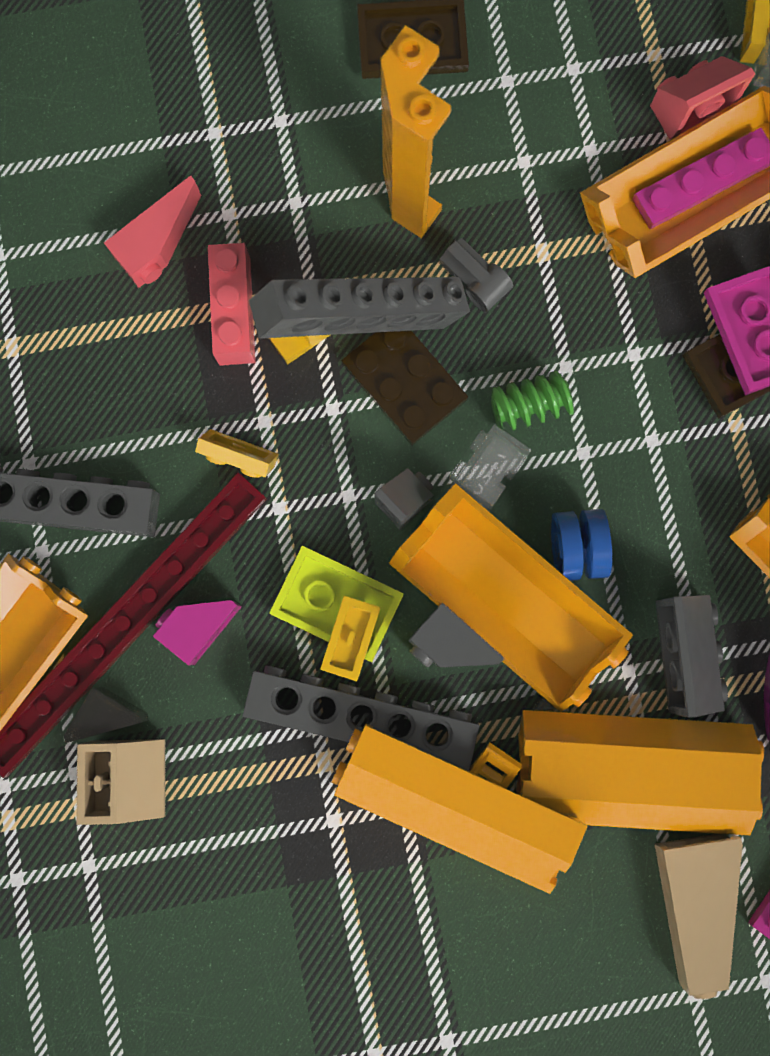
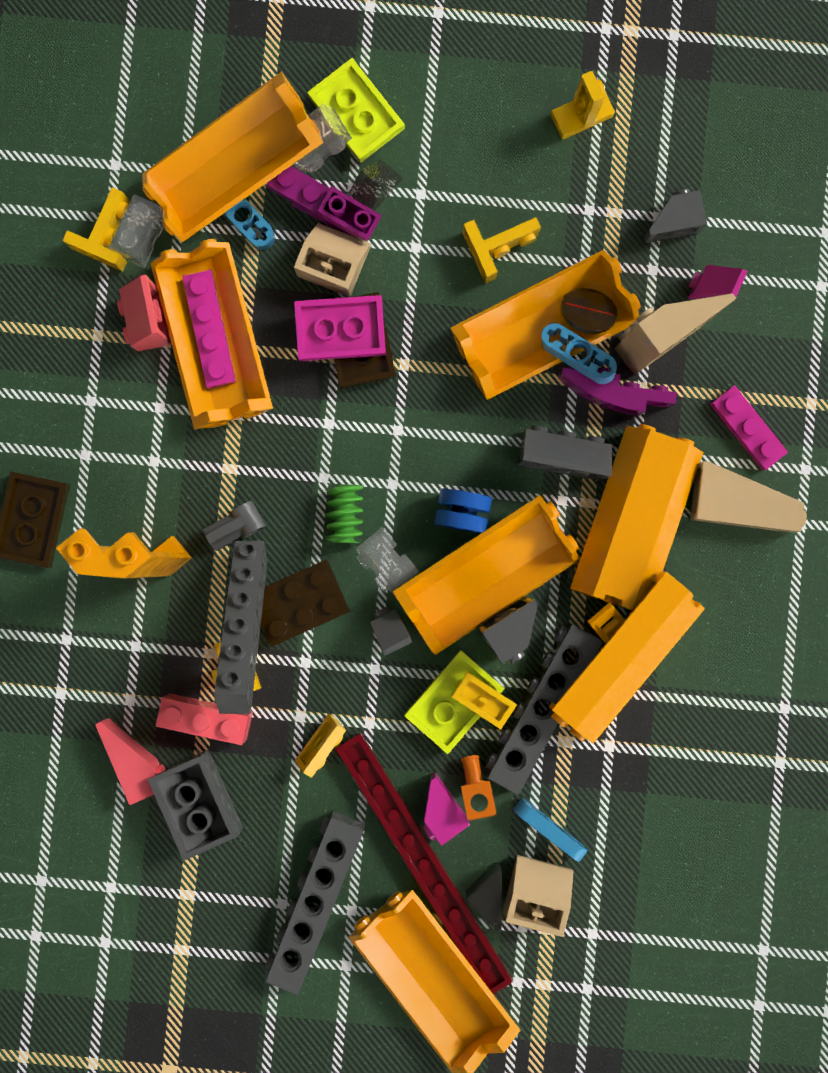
camera: 80 degrees left, 5 degrees up
(124, 321) = (196, 805): none -> dark grey slope
(208, 772) = (550, 829): none -> dark azure beam
(238, 659) = (474, 786): none -> orange bracket

